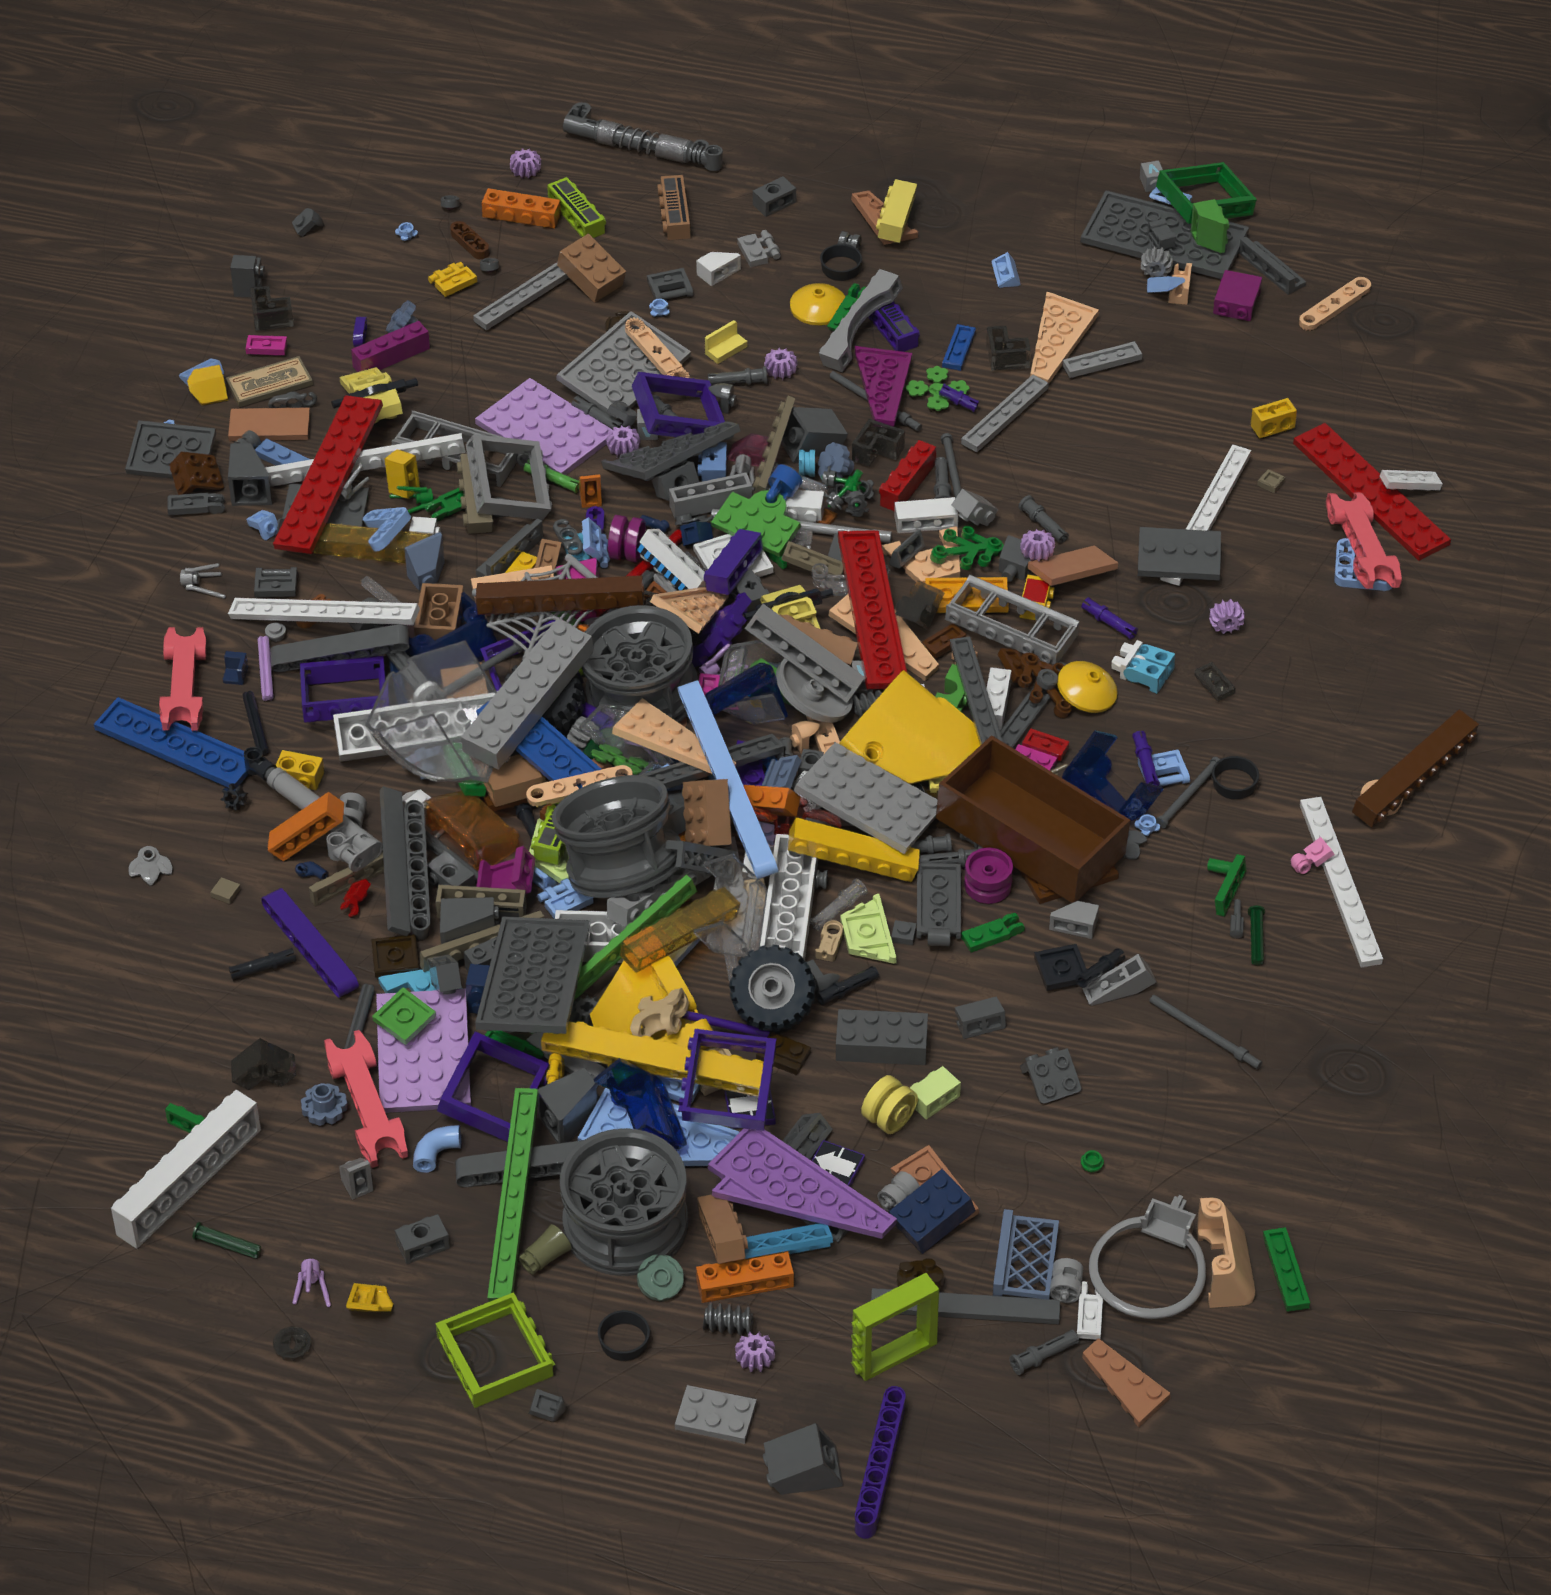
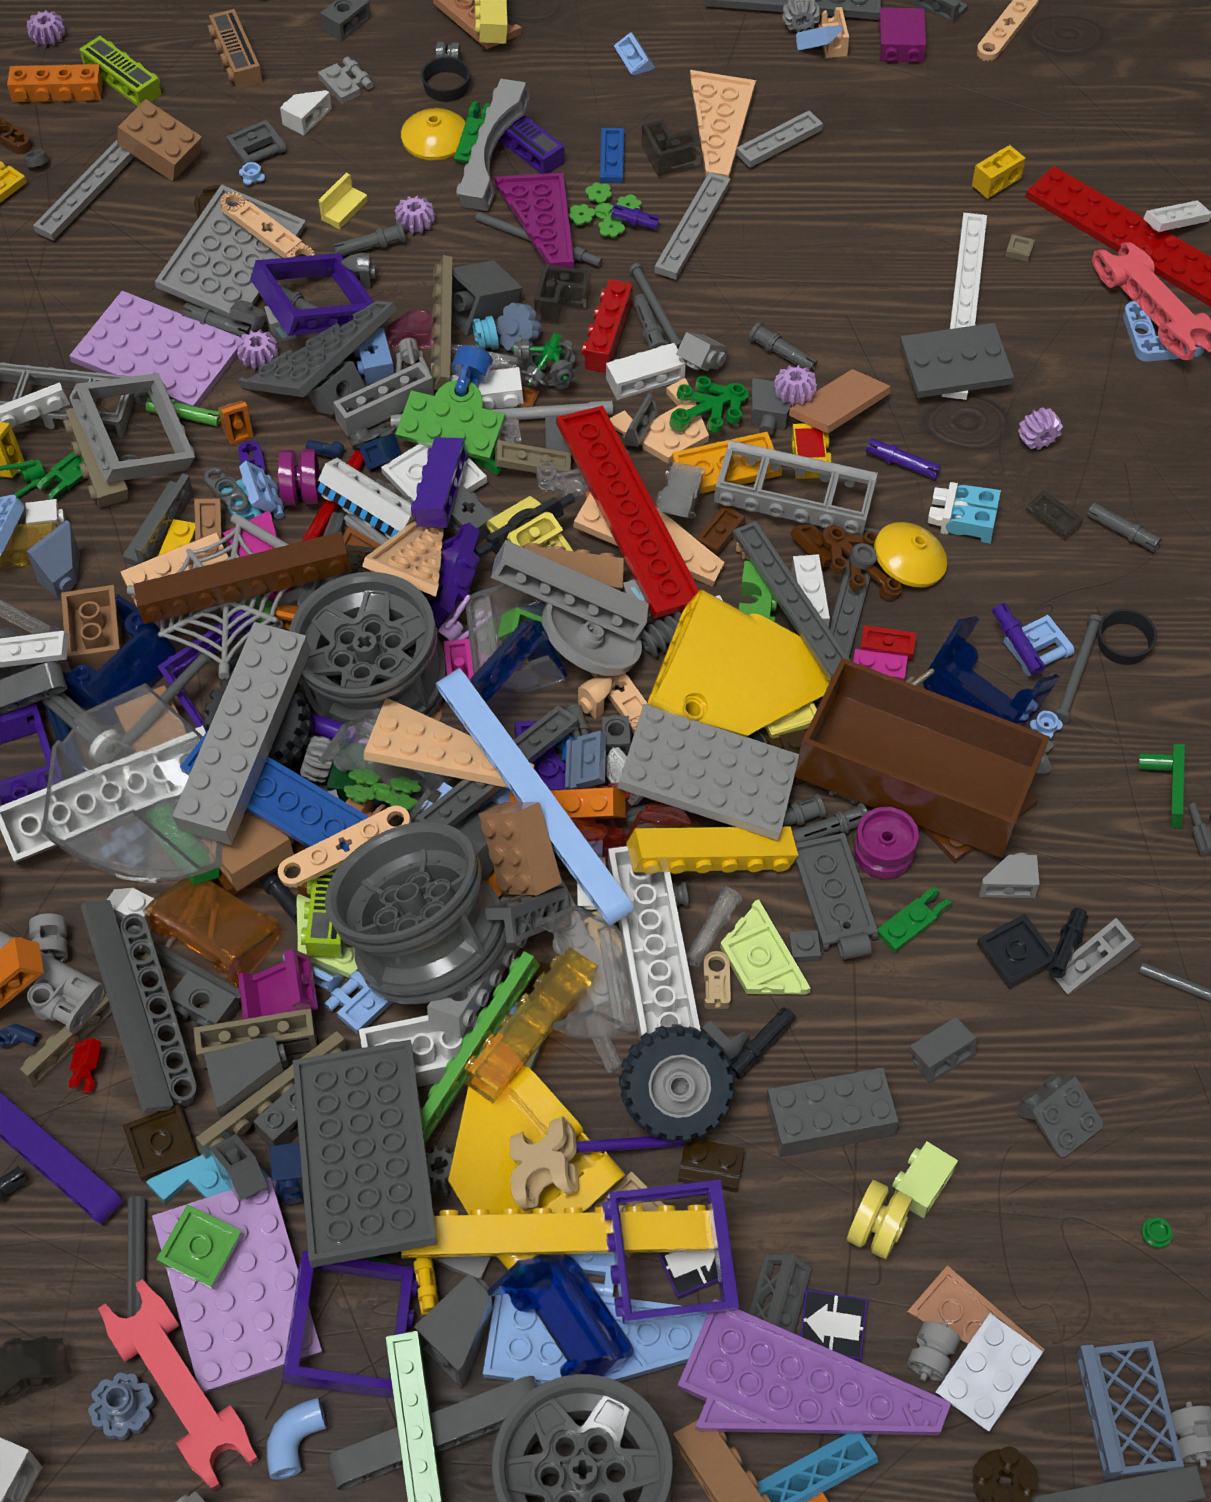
camera: 15 degrees left, 10 degrees up
(1273, 706) = (1132, 531): none -> dark grey pin

